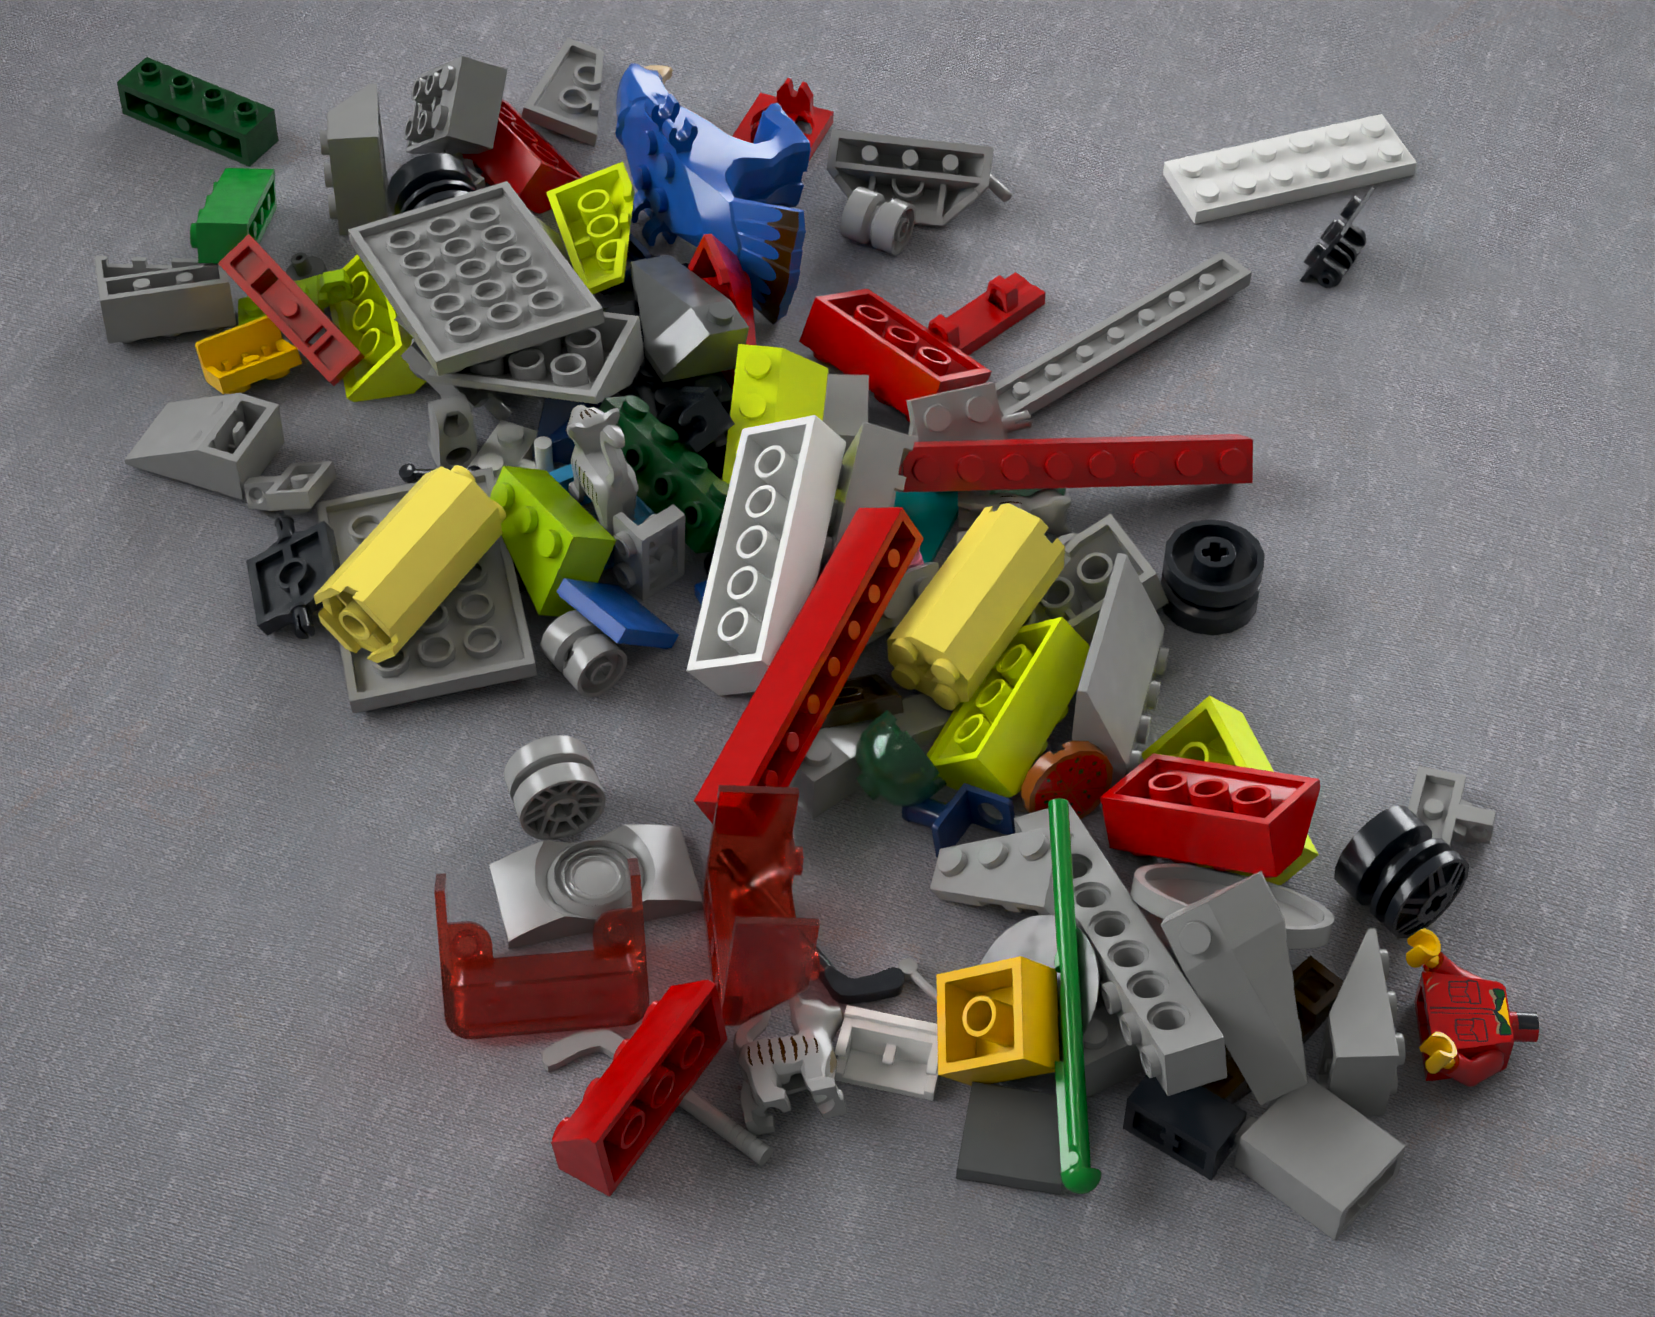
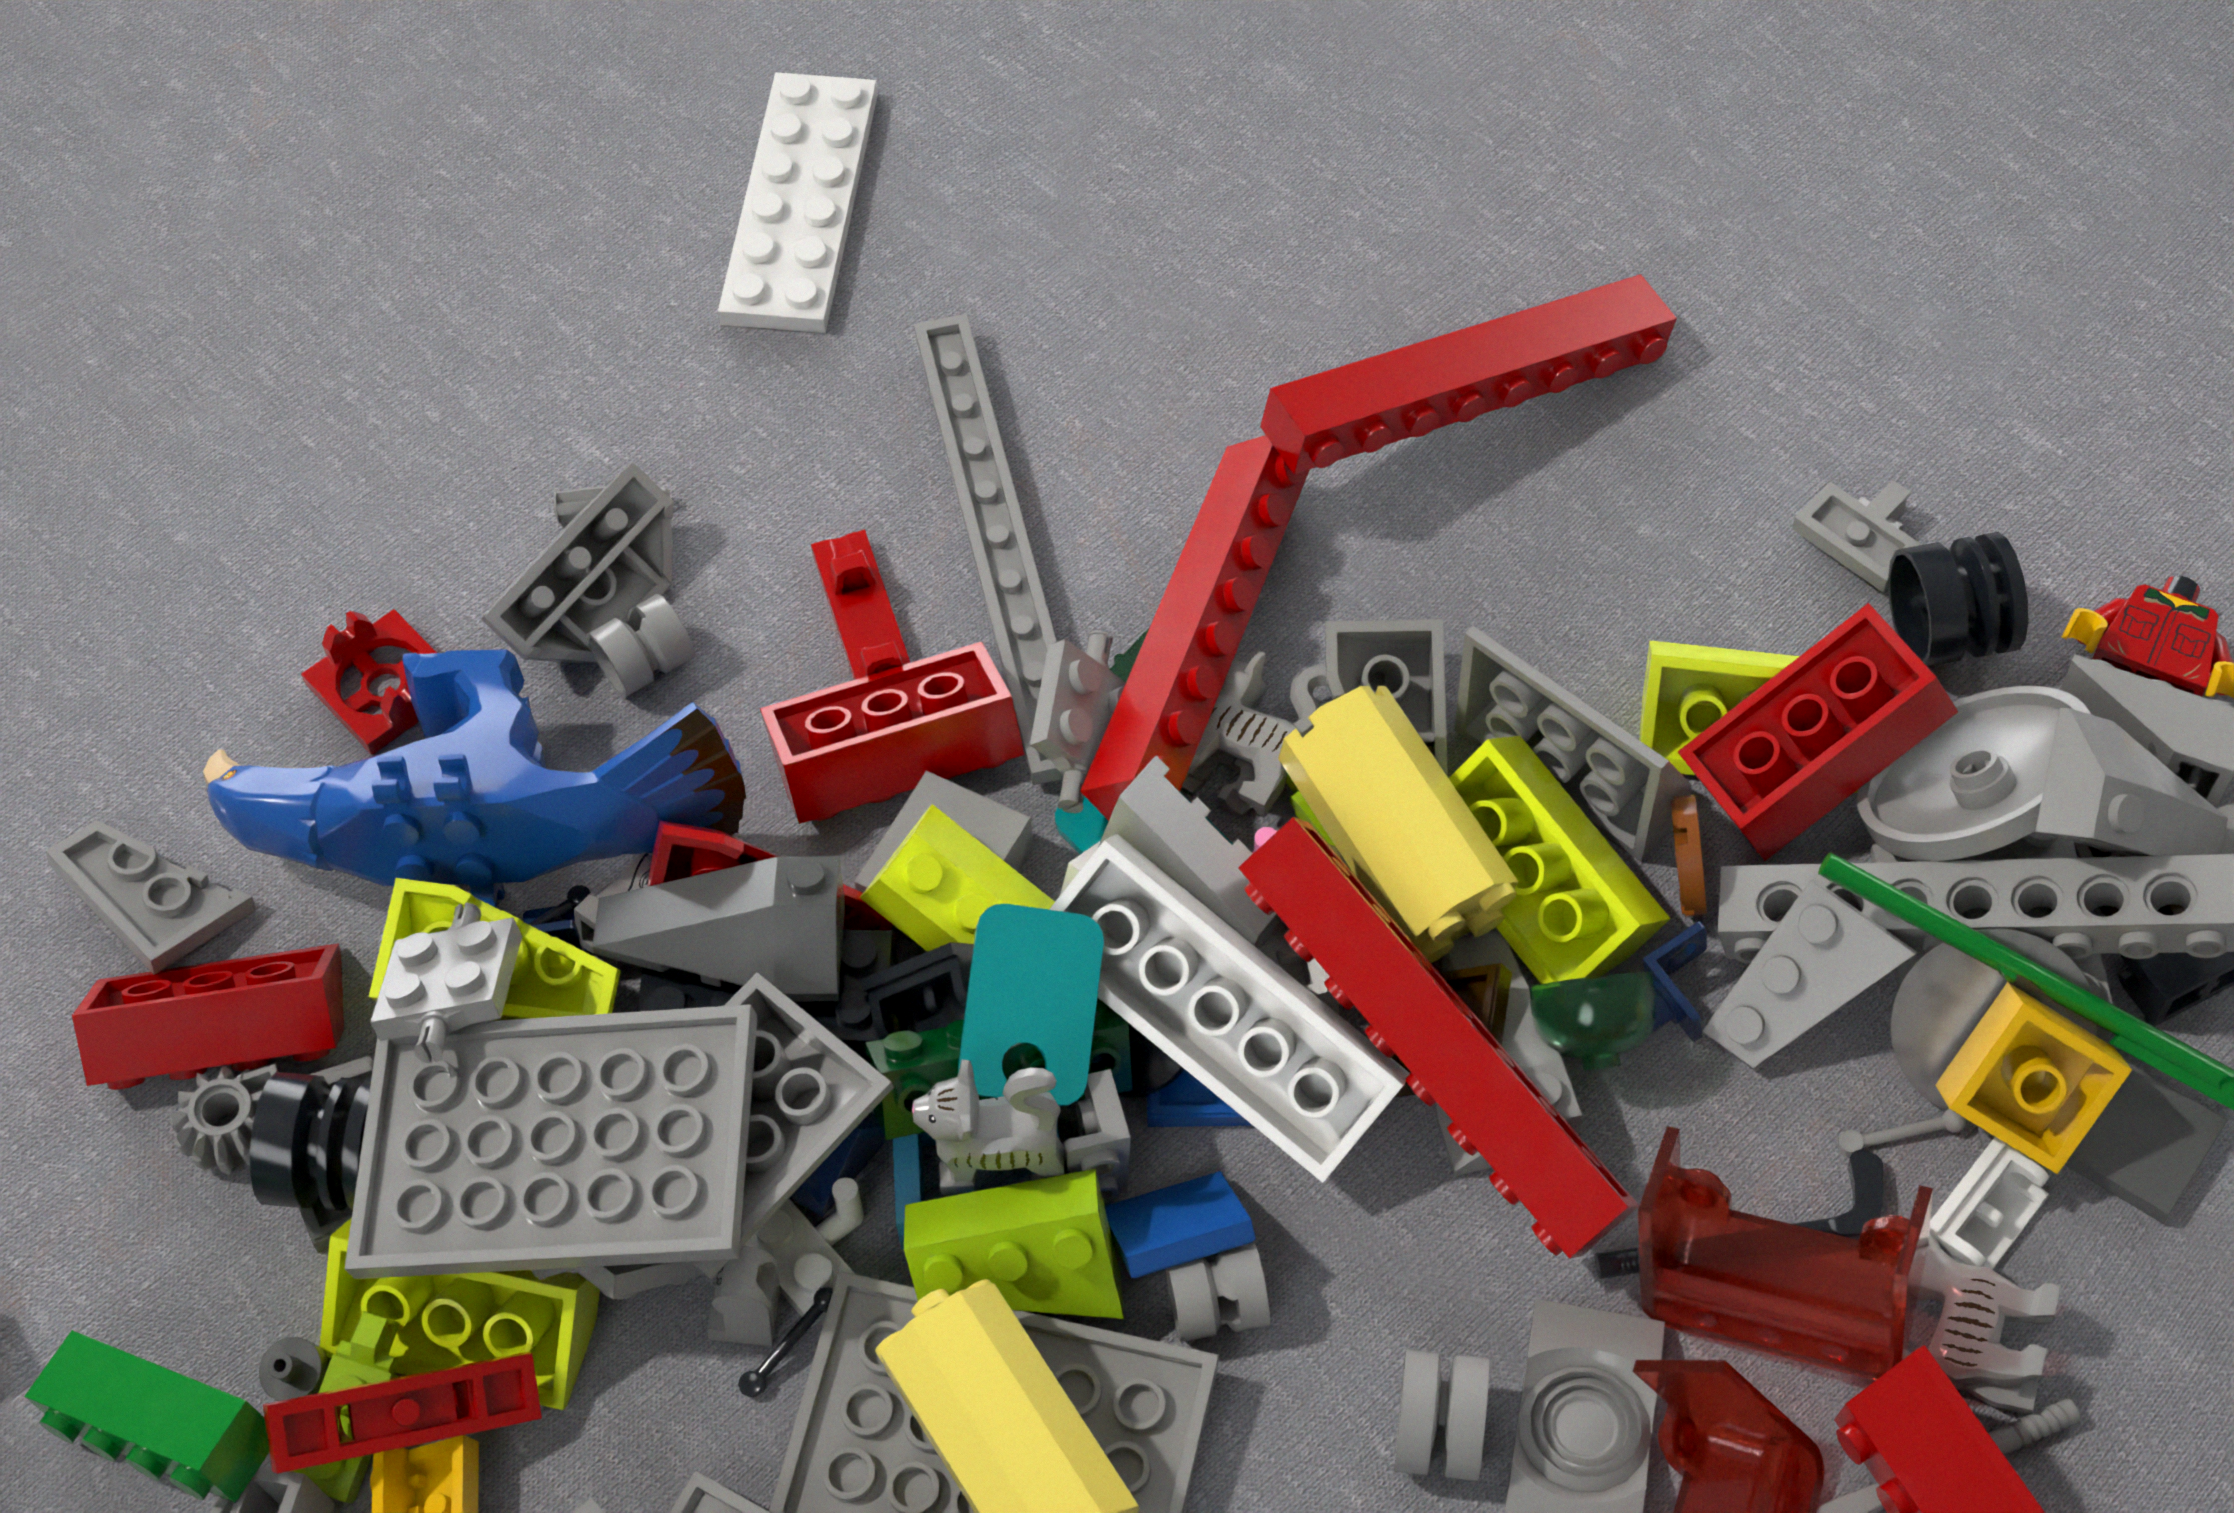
camera: 60 degrees left, 10 degrees up
(356, 161) = (173, 1206): light grey slope -> none
(456, 108) = (136, 1044): light grey slope -> none
(552, 191) = (446, 980): none -> light grey plate
(703, 442) = (1035, 986): none -> teal piece
(1212, 576) = (1433, 565): black wheel -> none
(1341, 246) = (972, 206): black hinge -> none
(1392, 528) = (1466, 373): none -> red brick

